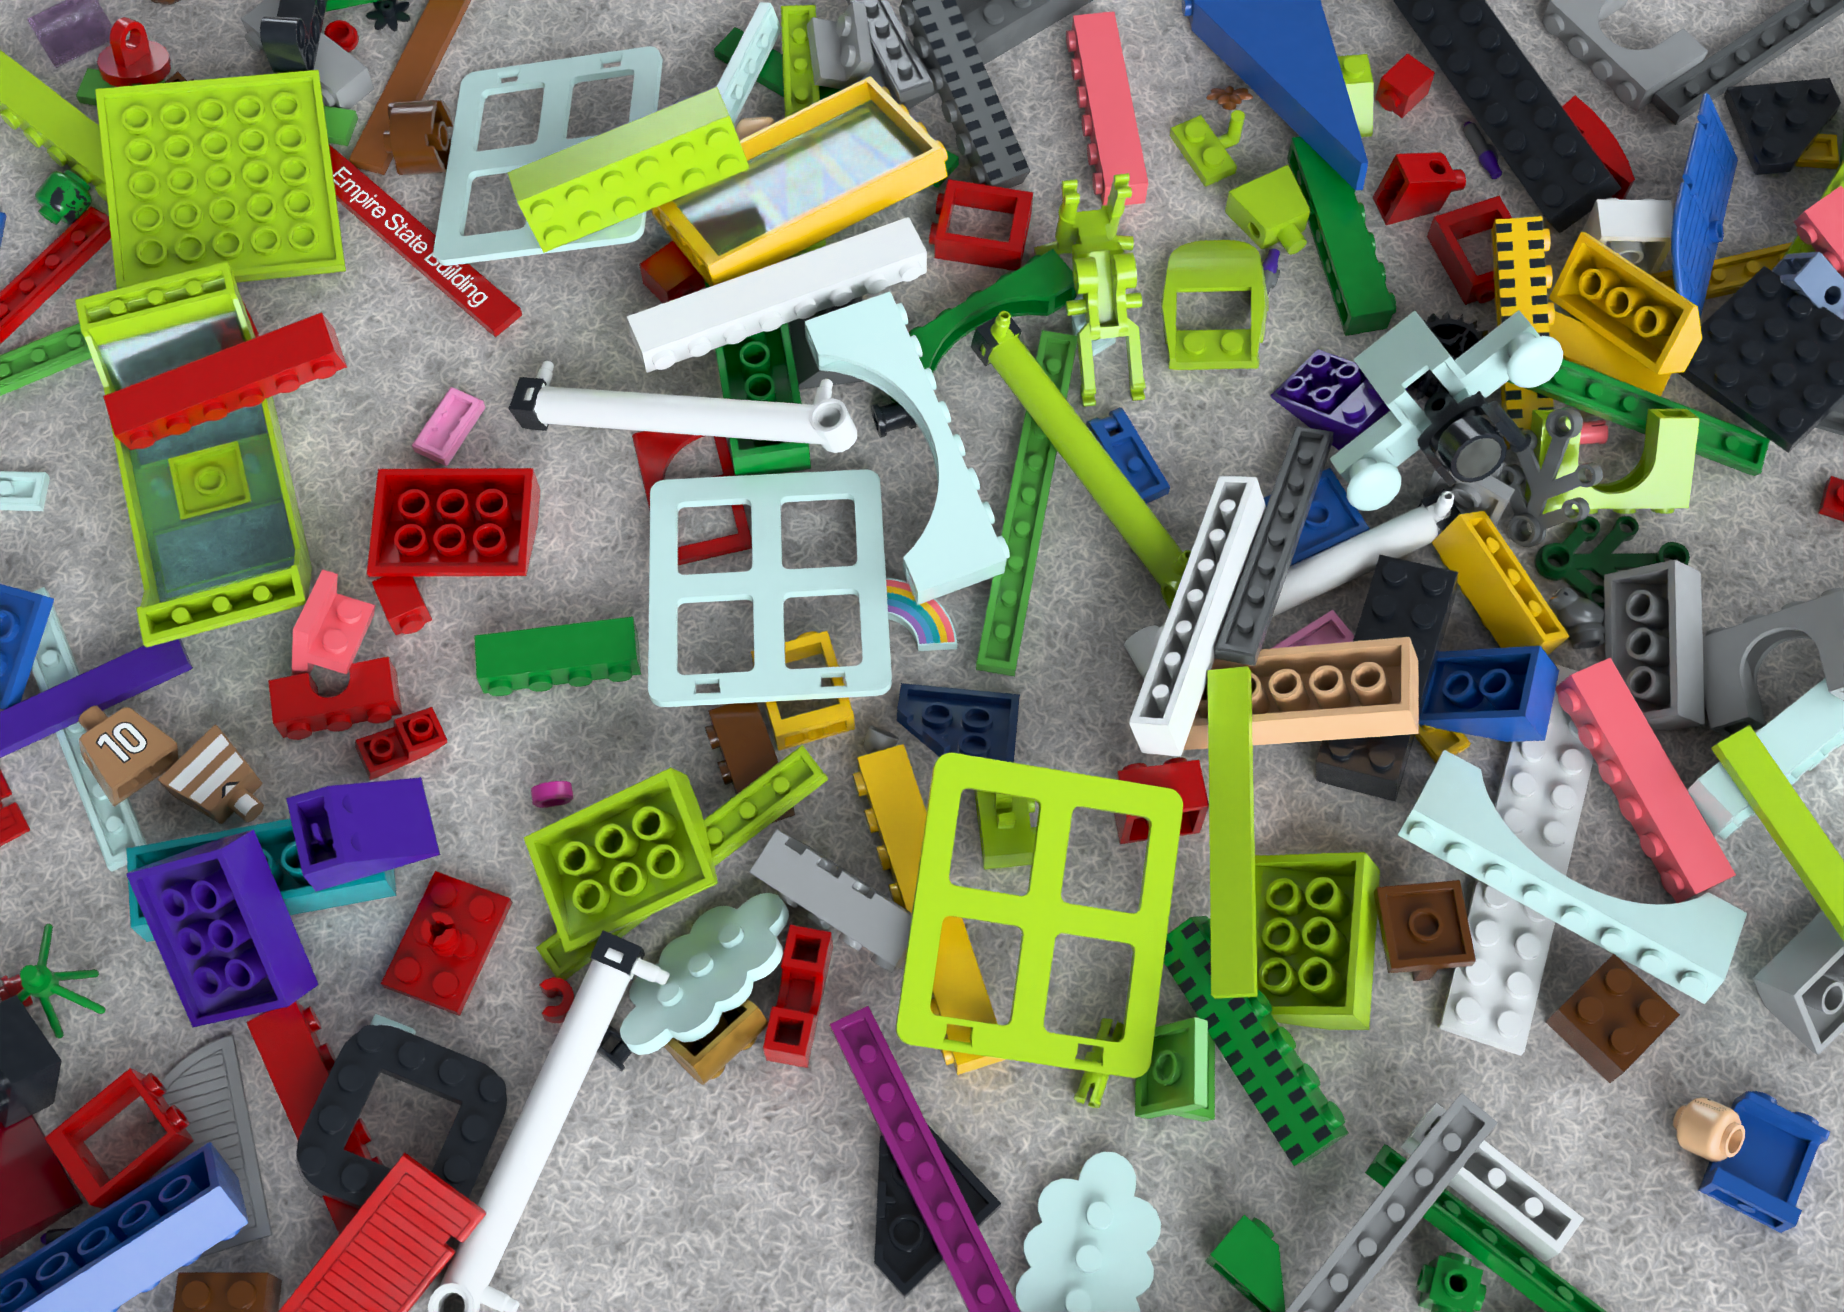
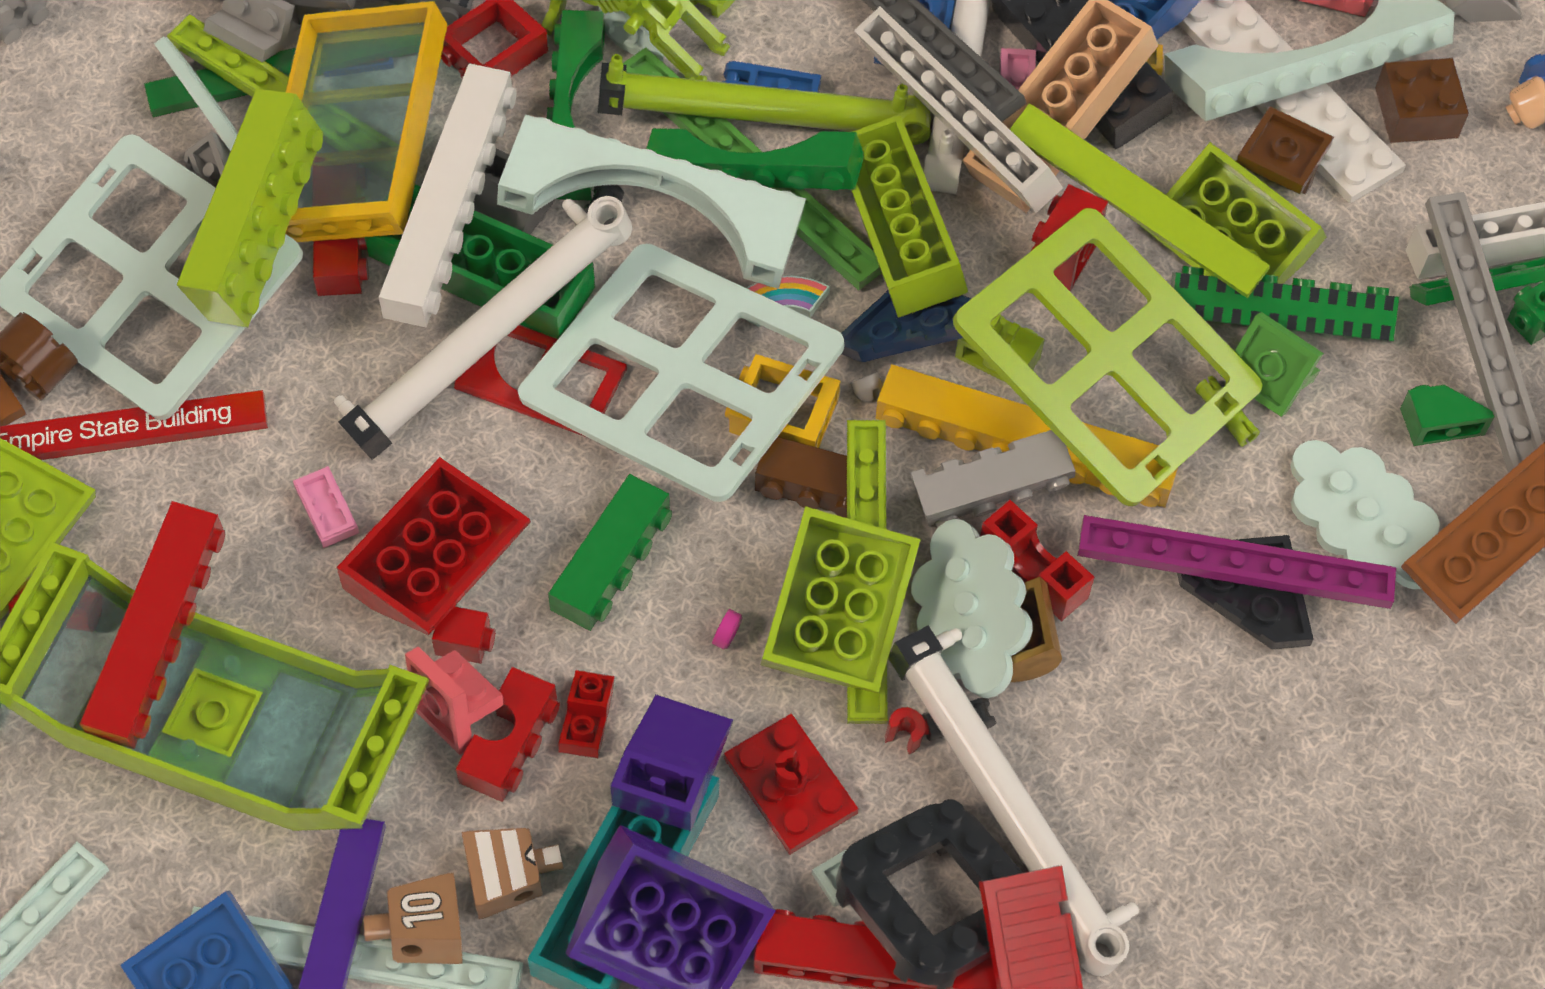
camera: 55 degrees left, 5 degrees down
(1051, 543) = (820, 162): none -> green arch
(1055, 646) = (904, 221): none -> lime brick

